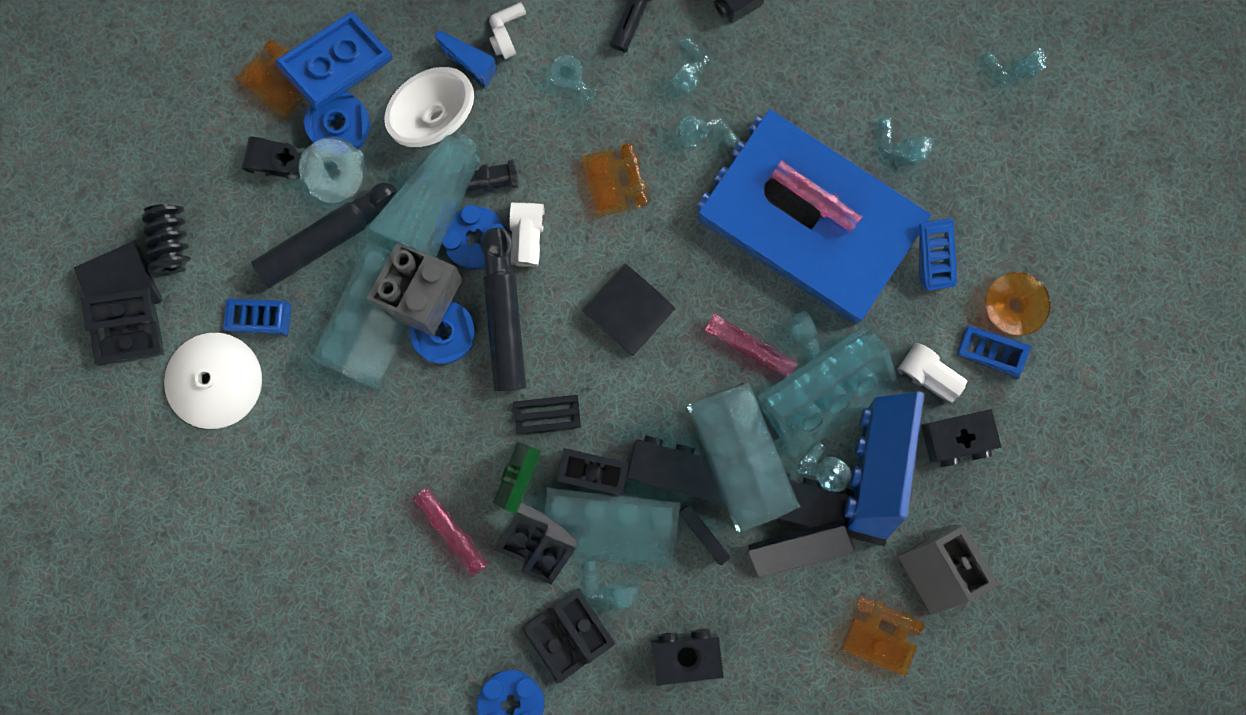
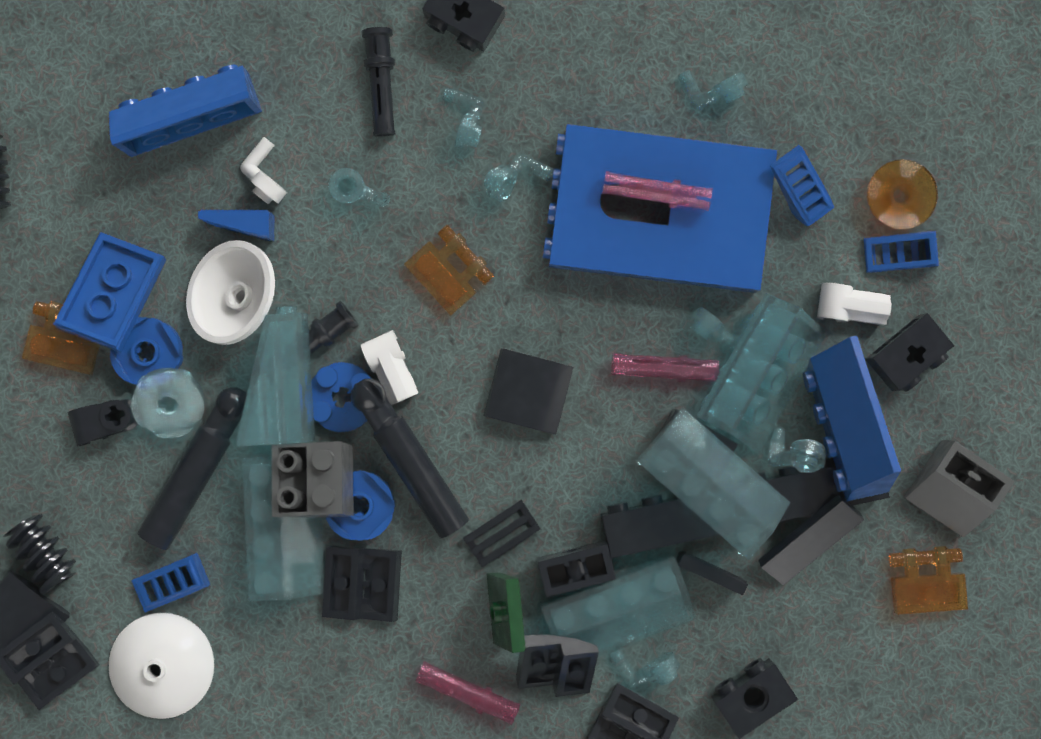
camera: 25 degrees left, 5 degrees up
(398, 390) = (346, 583): none -> black slope

